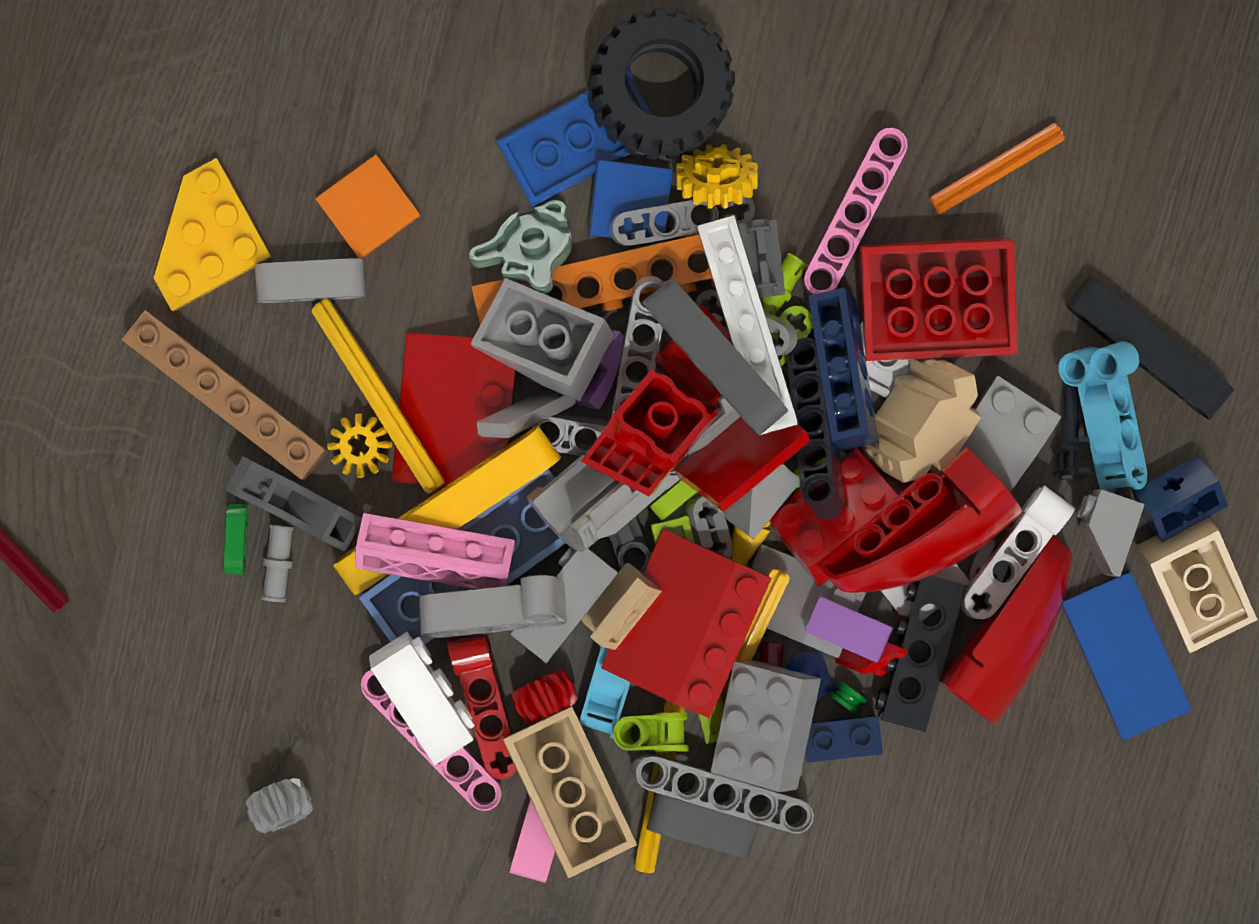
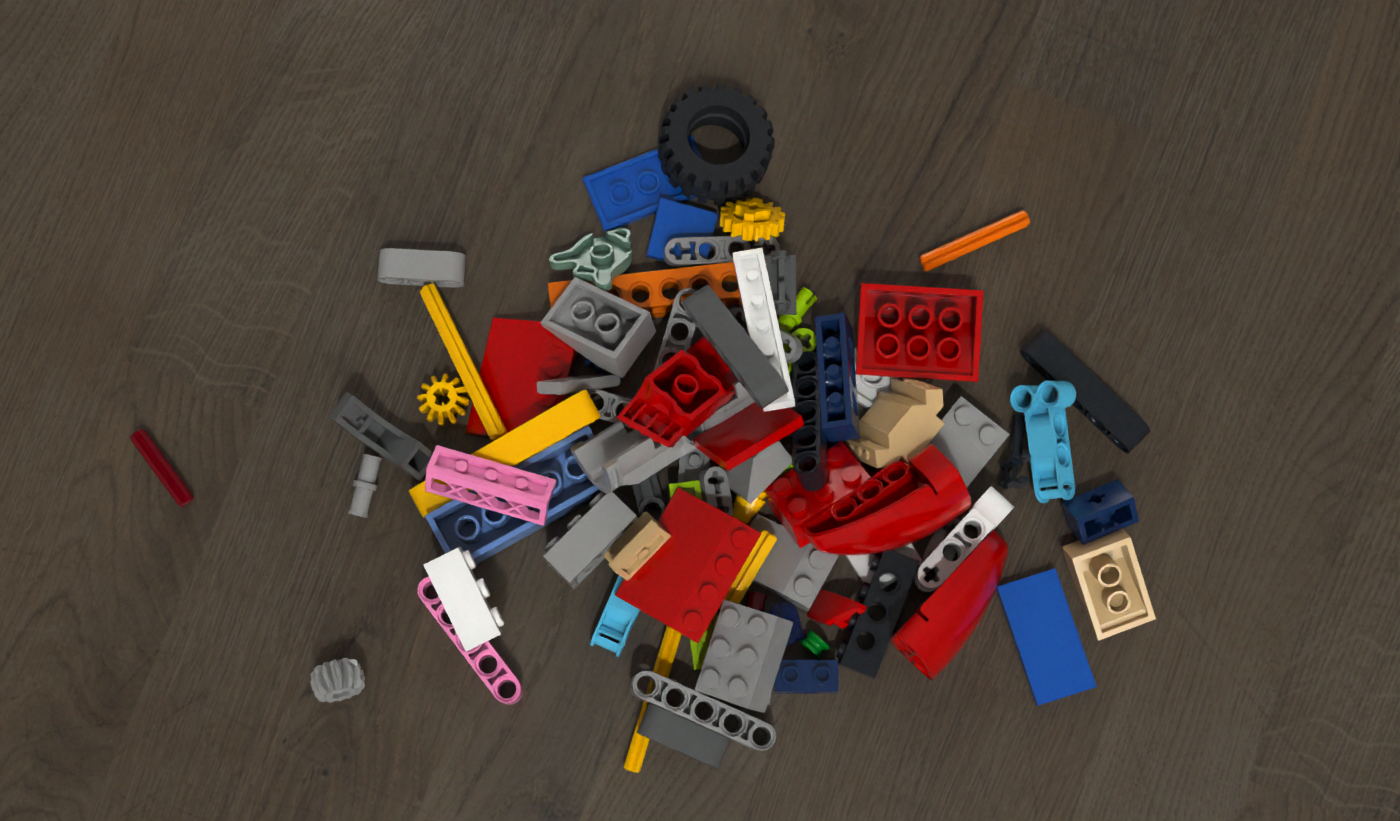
camera: 10 degrees right, 10 degrees down
(206, 238) = (345, 228): yellow plate -> none
(225, 395) = (342, 348): medium nougat brick -> none
(236, 538) = (334, 462): green beam -> none
(368, 207) = (475, 217): orange tile -> none
(472, 660) = (509, 577): red piece -> none
(532, 604) = (533, 533): light grey beam -> none
(533, 850) = (547, 733): bright pink slope -> none
(544, 697) = (566, 615): red gear -> none
(569, 792) = (576, 694): tan slope -> none
(604, 374) = (643, 364): medium lavender slope -> none
(657, 732) = (656, 653): lime piece -> none
(672, 499) = (689, 465): lime beam -> none
(848, 629) = (820, 584): medium lavender slope -> none
(862, 196) = (861, 248): bright pink beam -> none
(1108, 528) = (1040, 526): light grey slope -> none

